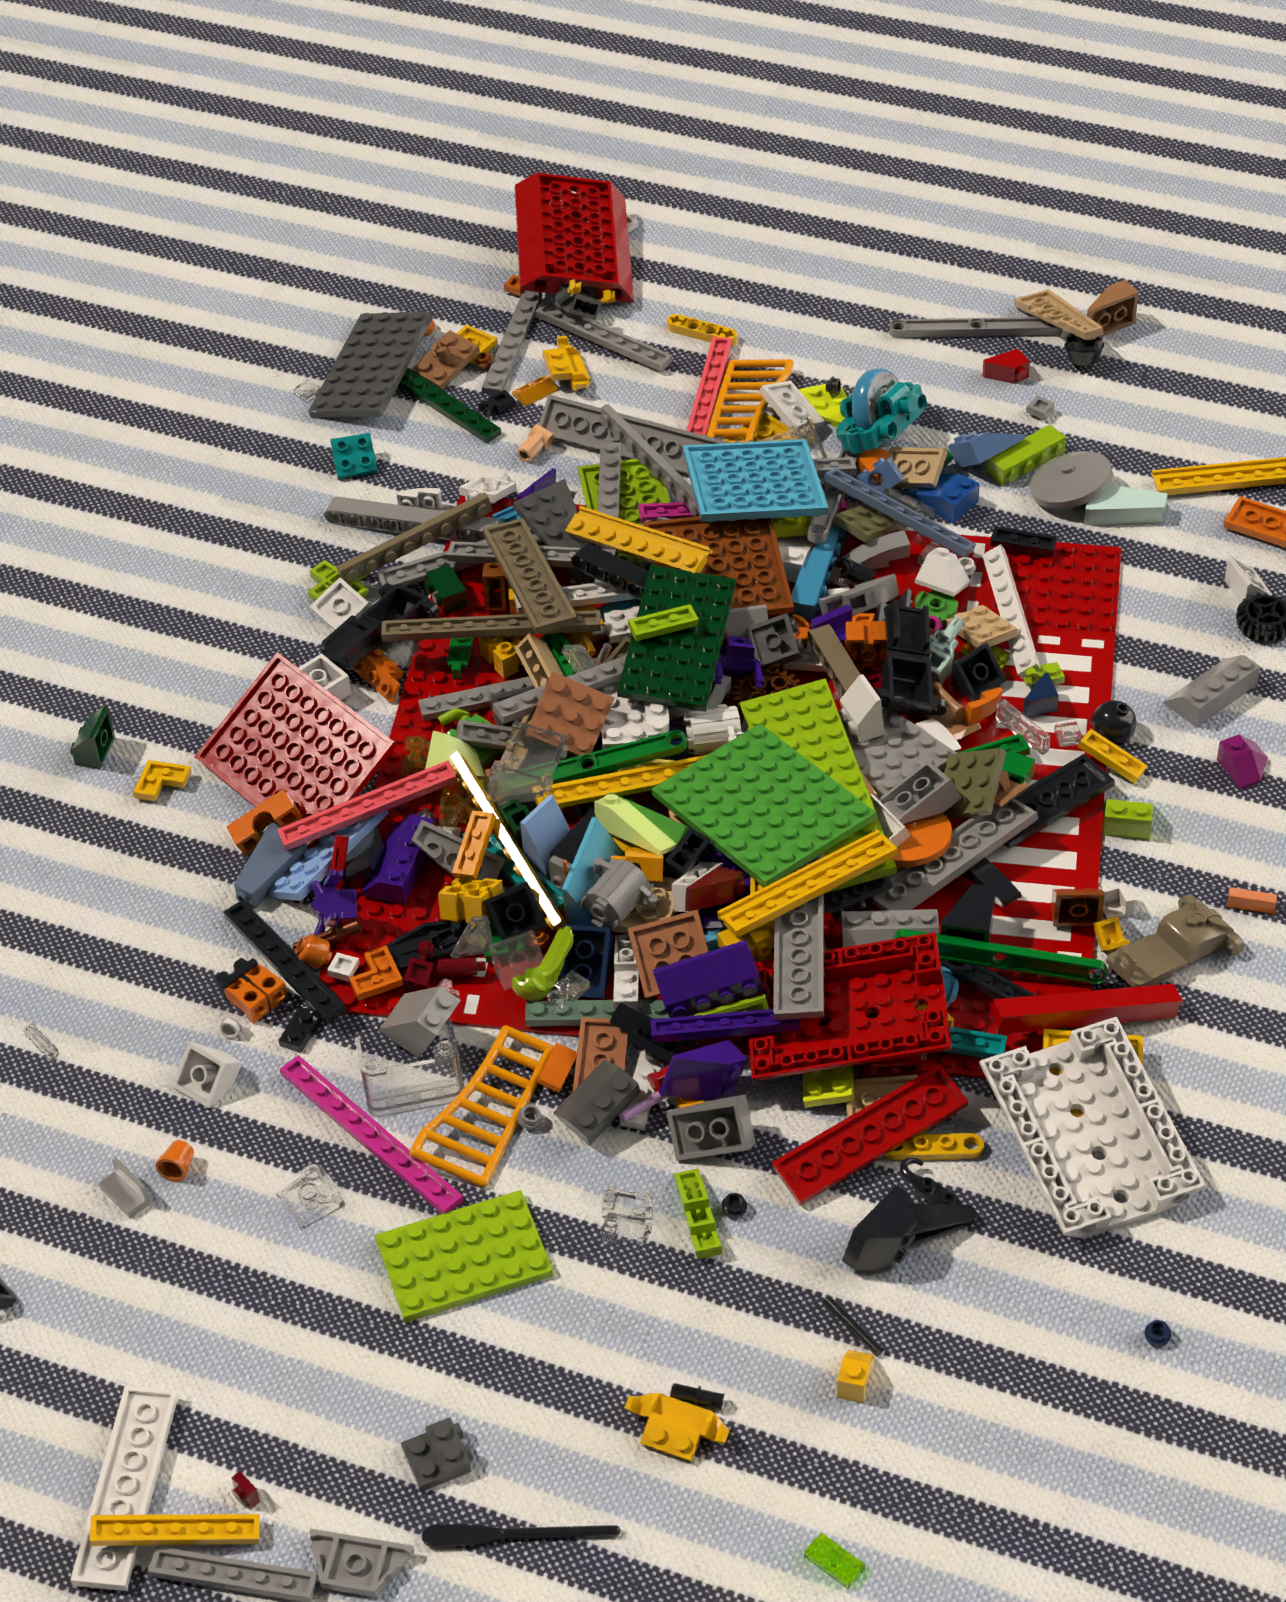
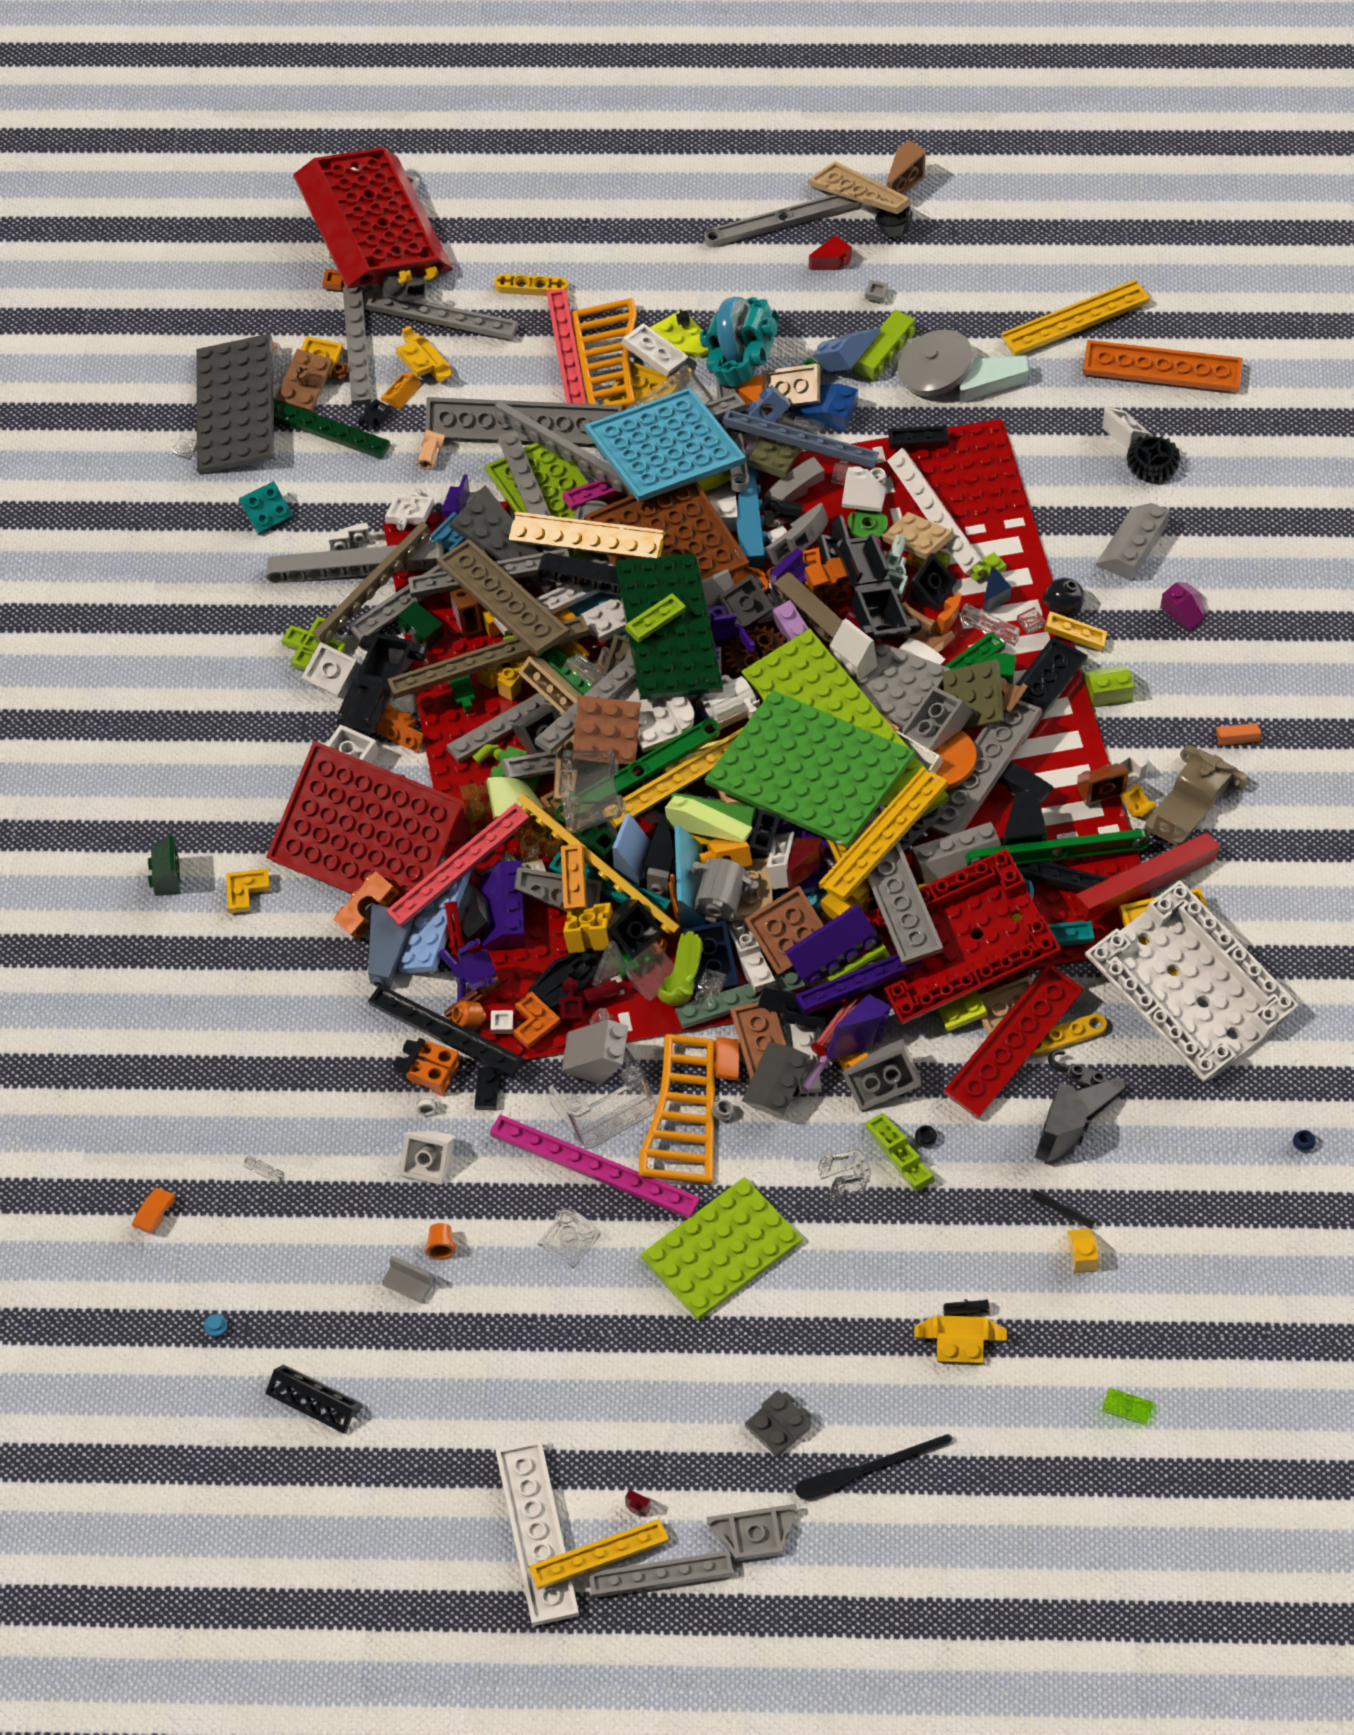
camera: 20 degrees left, 10 degrees up
(810, 666) = (788, 620): none -> lavender brick

